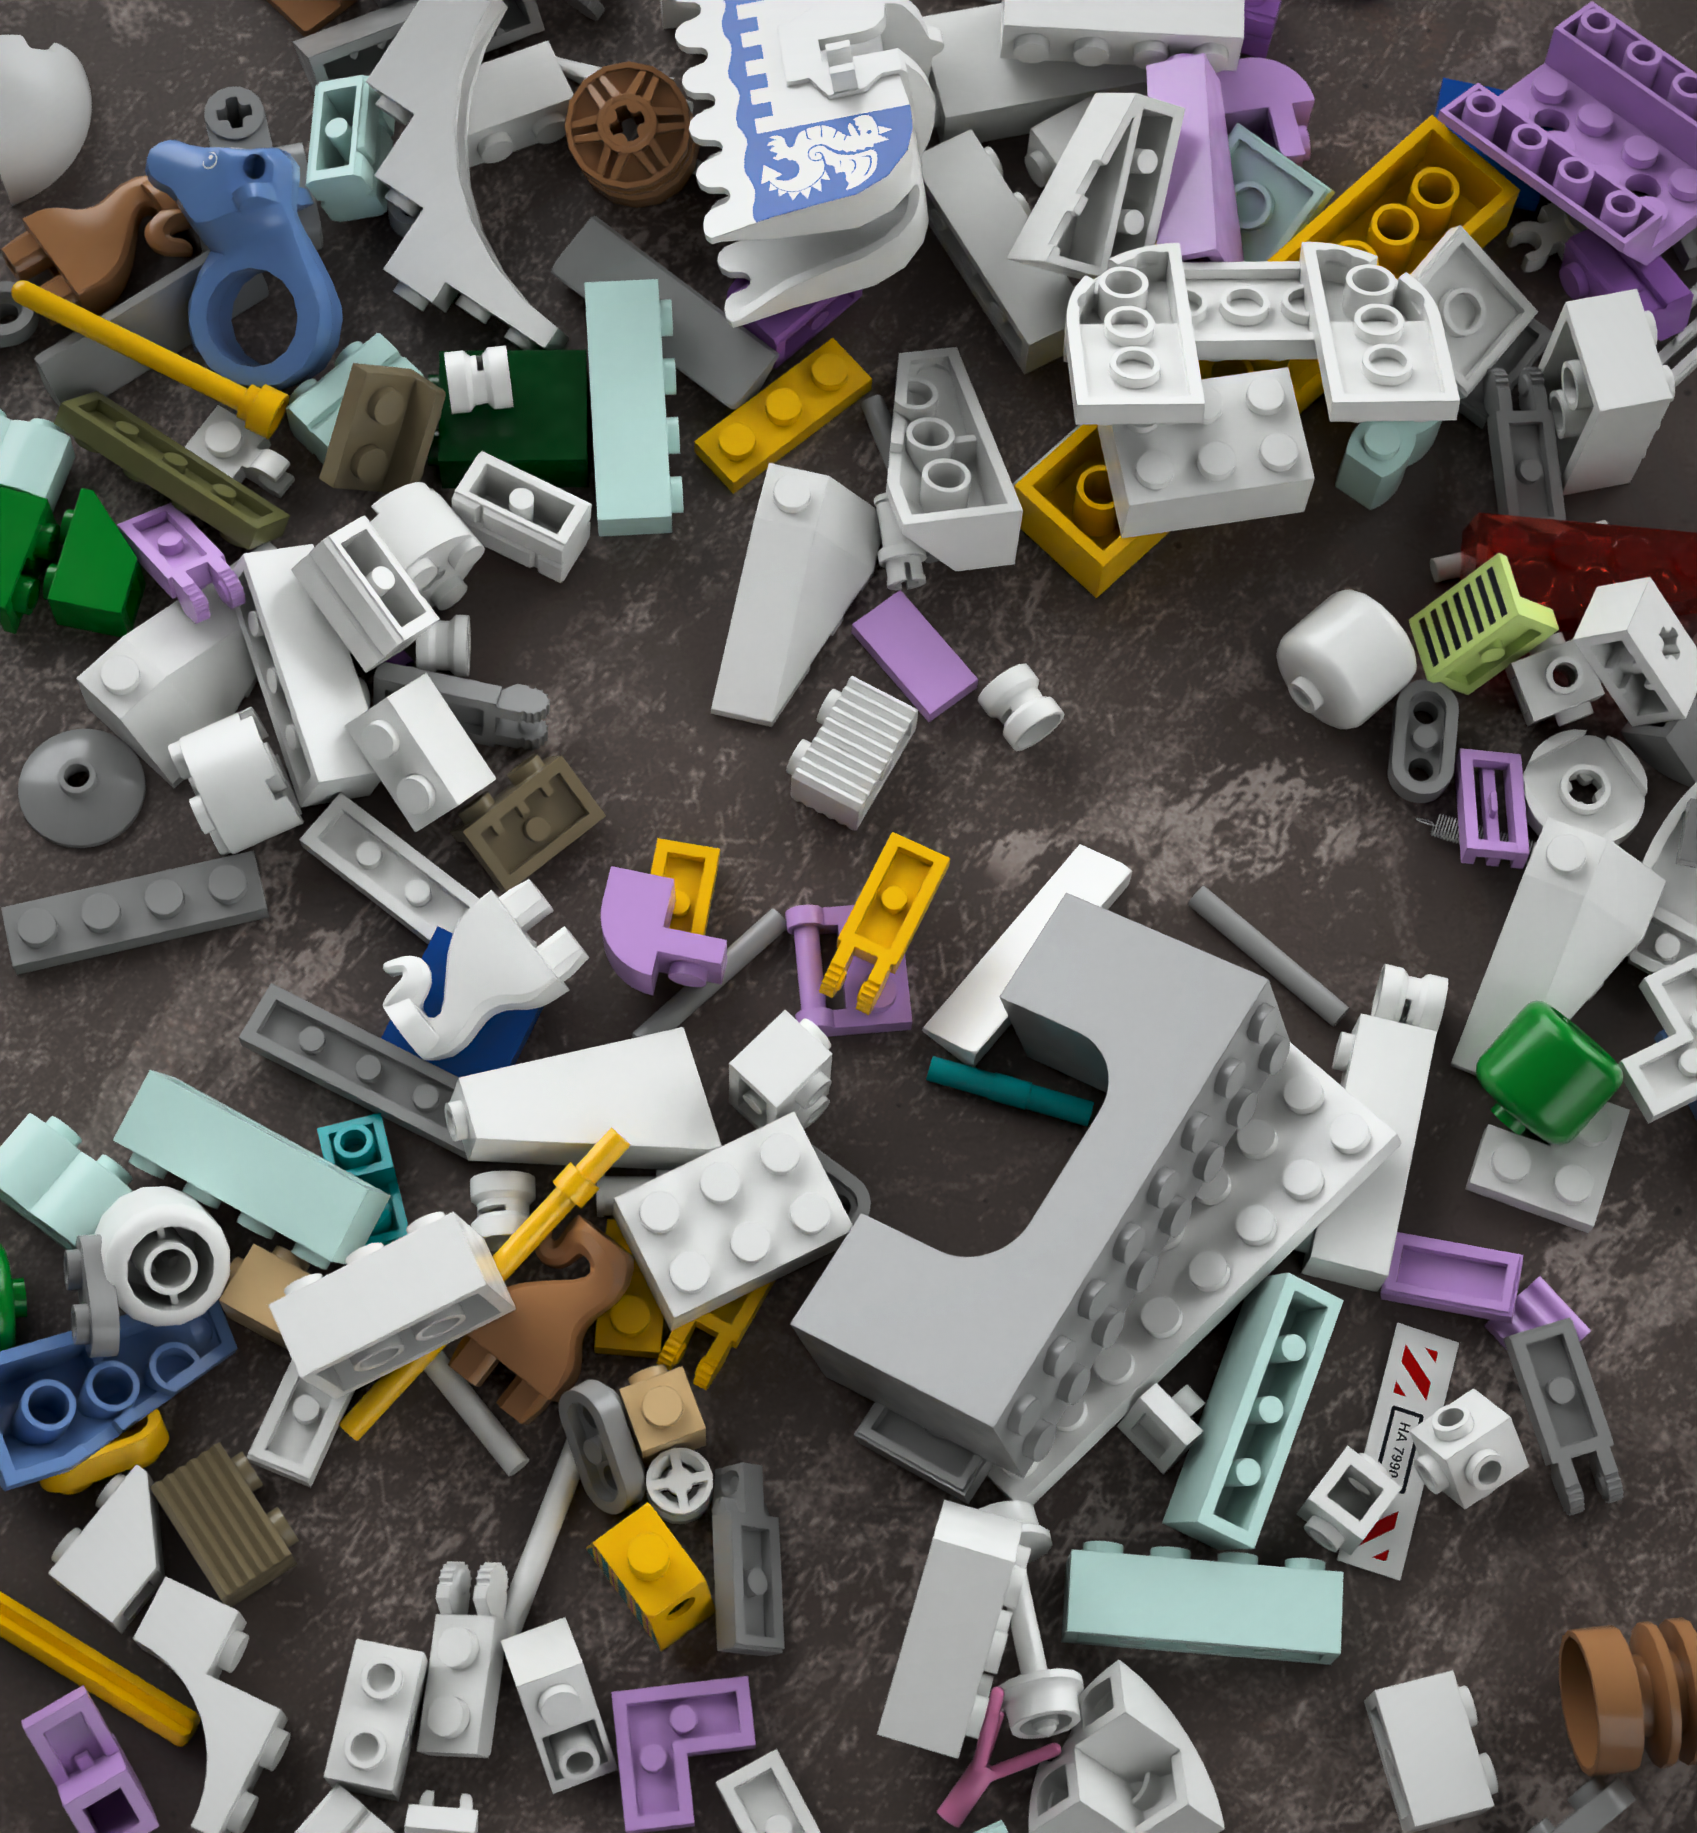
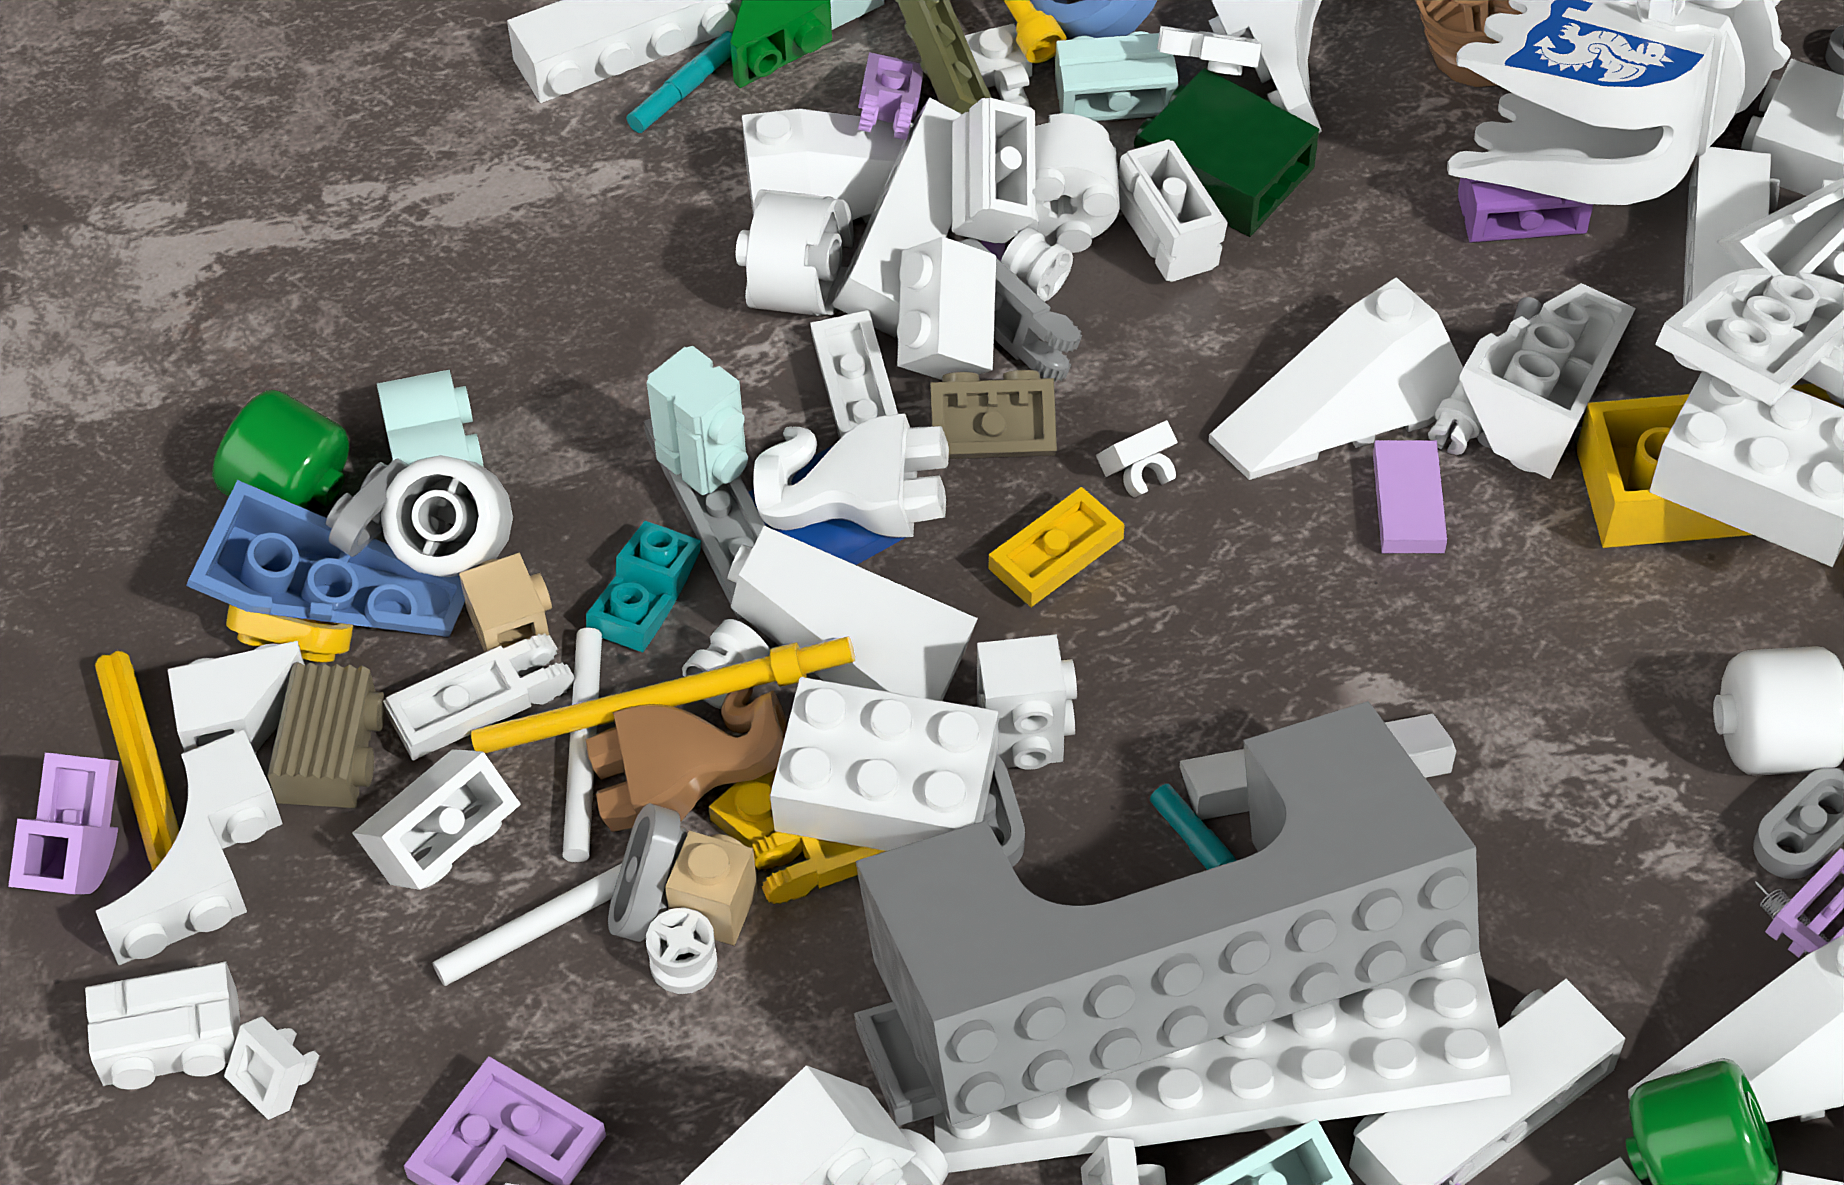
camera: 45 degrees right, 15 degrees down
(87, 813) = (692, 208): light grey dish -> none
(97, 574) = (825, 68): green slope -> none
(134, 912) = (654, 304): light grey plate -> none
(250, 1169) = (566, 508): light aqua brick -> none
(317, 1017) = (697, 420): none -> light aqua brick
(377, 1719) = (300, 946): white brick -> none
(382, 429) = (1115, 84): dark tan bracket -> none
(391, 1304) = (567, 641): white brick -> none
(393, 1529) = (437, 819): none -> white brick
(445, 327) = (1225, 52): none -> white plate
(465, 1663) = (405, 956): white hinge -> none
(478, 379) = (1210, 91): white wheel -> none
(559, 1705) = (441, 1036): white slope -> none
(630, 409) = (1320, 187): light aqua brick -> none
(639, 940) = (1004, 535): lavender brick -> none
(653, 1576) = (597, 974): yellow torso -> none
(672, 772) = (1140, 452): none -> white tile
(705, 348) = (1409, 152): light grey slope -> none
(738, 956) = (1053, 616): light grey bar -> none
(746, 1564) = (677, 1046): light grey hinge -> none
(783, 415) = (1453, 271): yellow plate -> none
(852, 751) = (1294, 525): white brick -> none
(886, 916) = (1207, 647): yellow hinge -> none
(893, 1006) = (1172, 694): lavender plate -> none
(1020, 707) = (1465, 579): white wheel -> none
(1268, 956) = (1528, 898): light grey bar -> none
(1424, 998) = (1629, 1008): white wheel -> none

